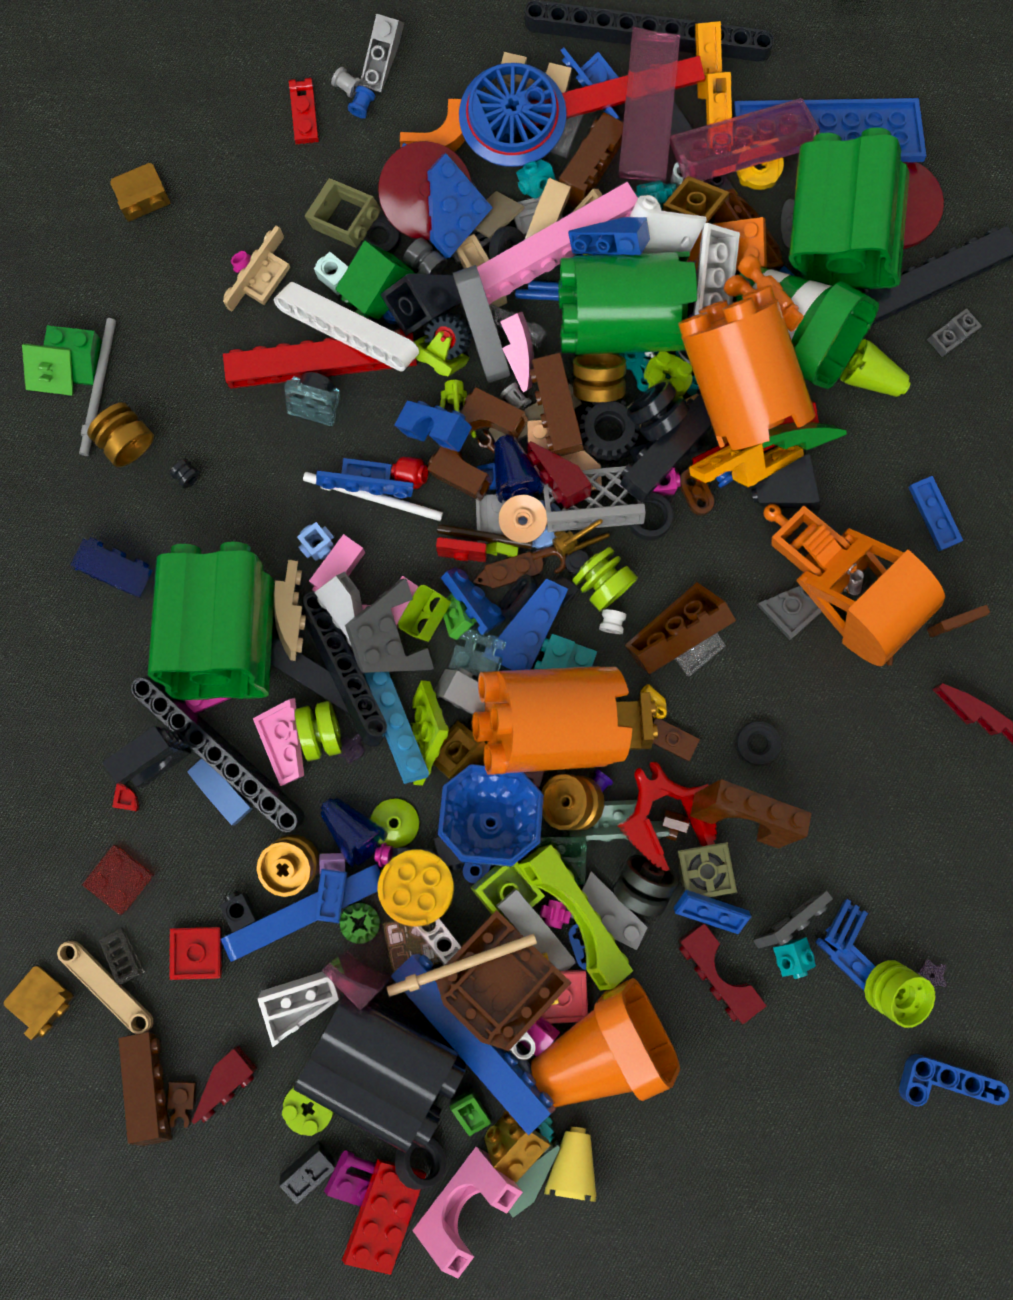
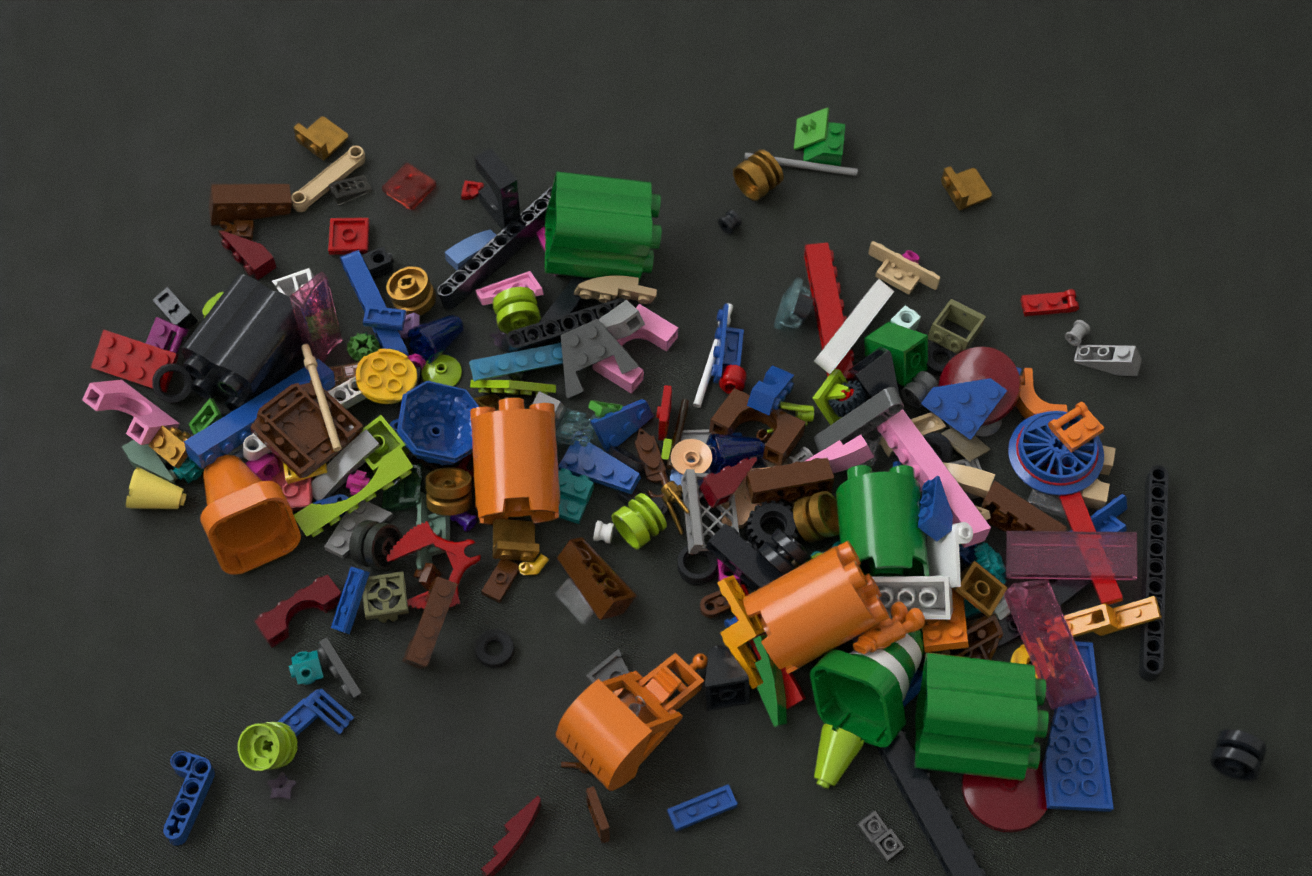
camera: 90 degrees right, 20 degrees down
(111, 567) = (654, 165): clear blue wedge -> none
(310, 535) = (673, 309): light blue brick -> none
(361, 101) = (1060, 343): blue bush -> none
(413, 613) = (611, 386): lime piece -> none
(499, 78) = (1078, 433): none -> orange plate
(534, 177) = (1003, 472): teal brick -> none

